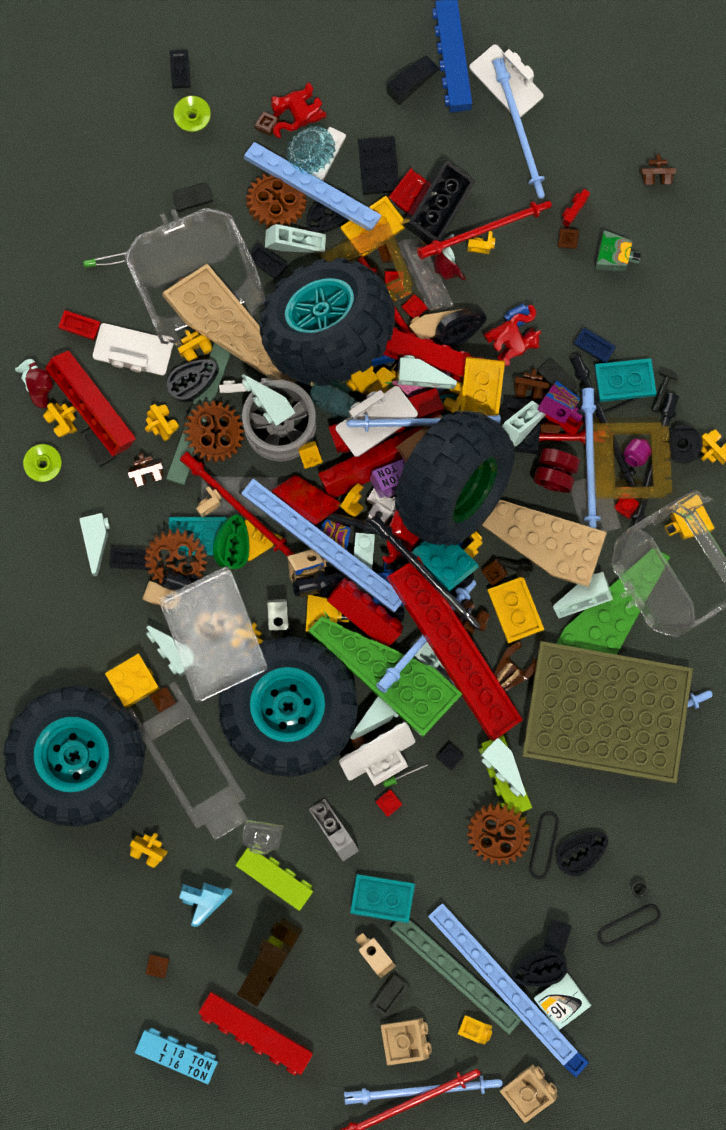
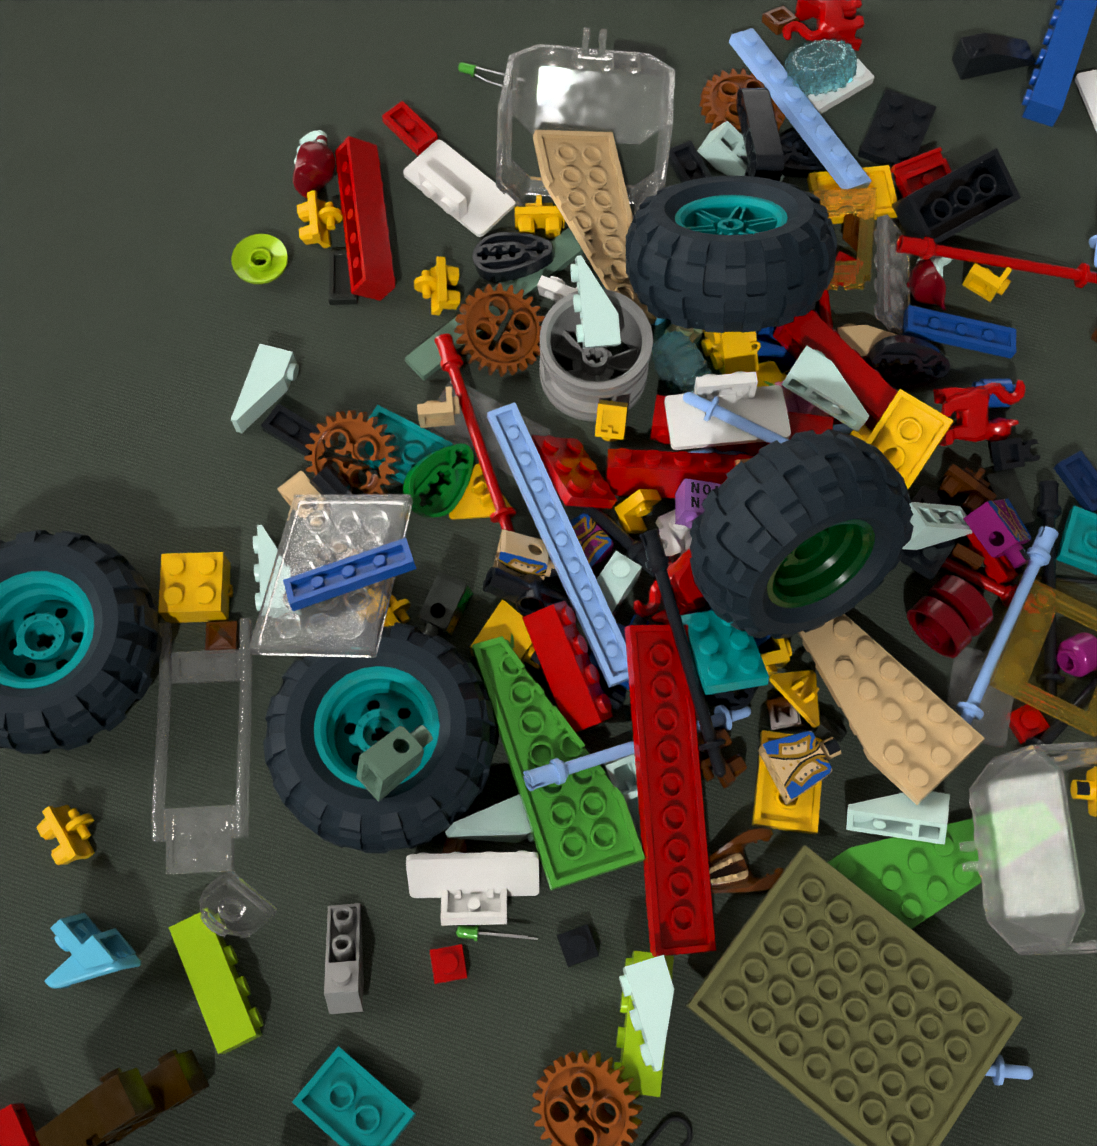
camera: 30 degrees right, 10 degrees down
(153, 468) = (371, 332): hips -> none
(226, 631) = (349, 574): none -> blue plate
(309, 717) = (392, 760): none -> sand green torso
(313, 241) = (760, 133): none -> black beam
(414, 307) = (855, 313): red plate -> none
(480, 287) = (959, 331): none -> blue plate
(497, 557) = (801, 692): none -> yellow piece
(515, 598) = (798, 762): none -> torso
(545, 350) = (1012, 453): none -> black plate

